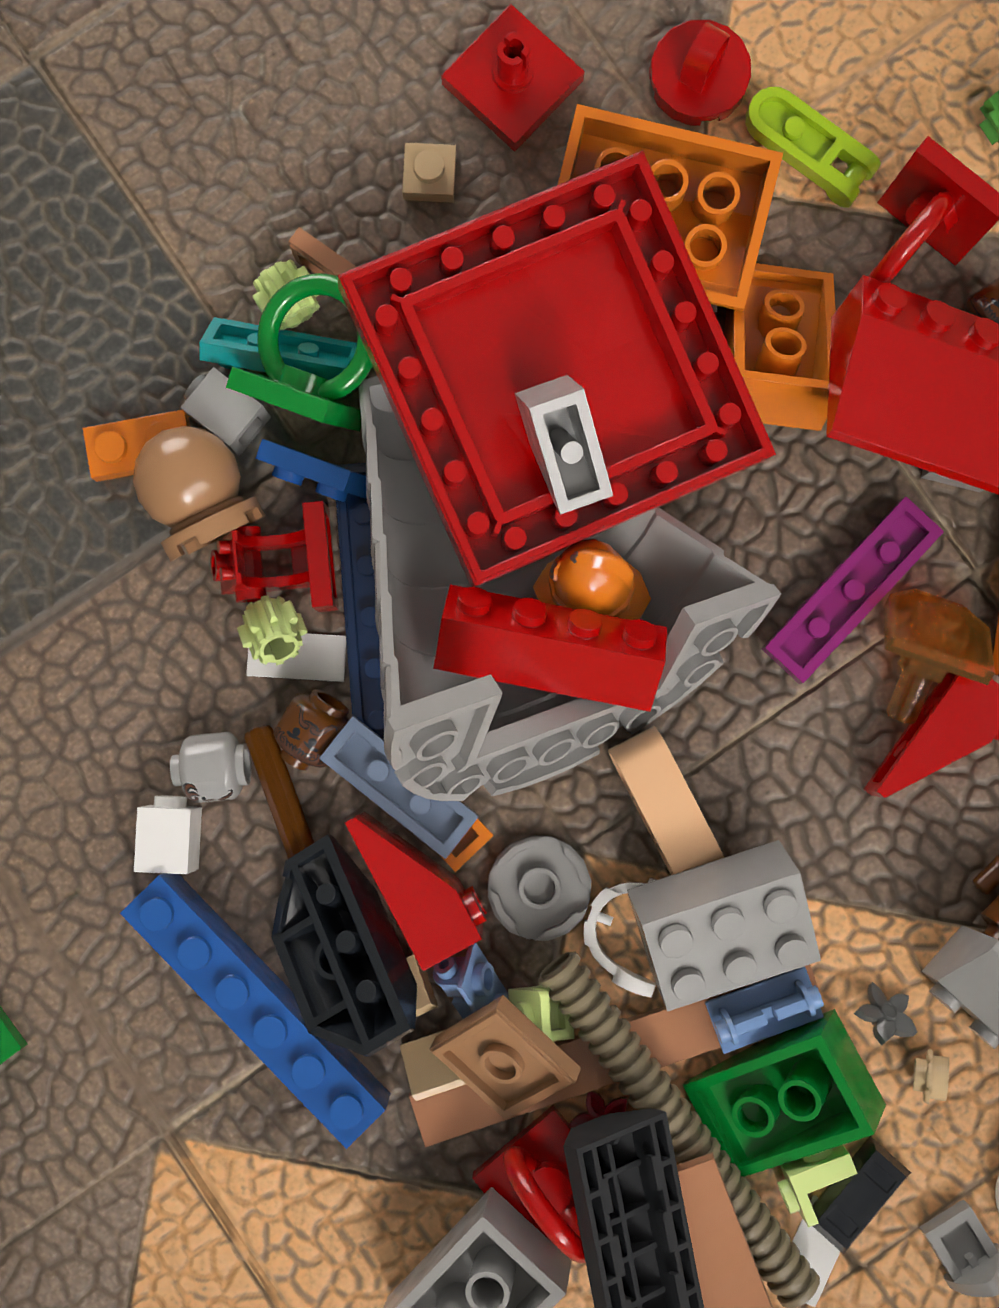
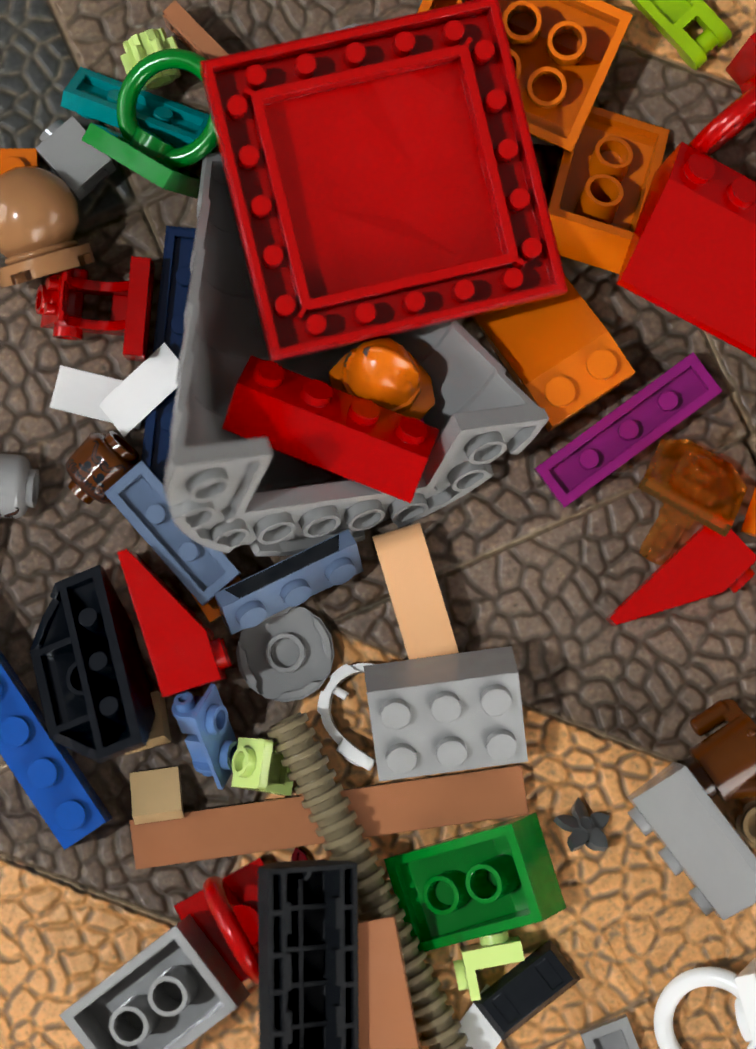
camera: 15 degrees right, 0 degrees up
(272, 630) = (82, 368): yellowish green gear -> none
(278, 790) = (60, 517): reddish brown axle -> none
(295, 465) = (130, 220): blue plate -> none
(340, 640) = (142, 390): none -> white sticker
(505, 1058) = (222, 794): medium nougat tile -> none
(531, 815) = (289, 582): none -> sand blue plate
(565, 443) = (374, 248): light grey slope -> none
(764, 1009) = (470, 799): medium blue hinge -> none
(767, 522) = (557, 353): none -> orange slope
(931, 1077) = (614, 892): tan plate -> none

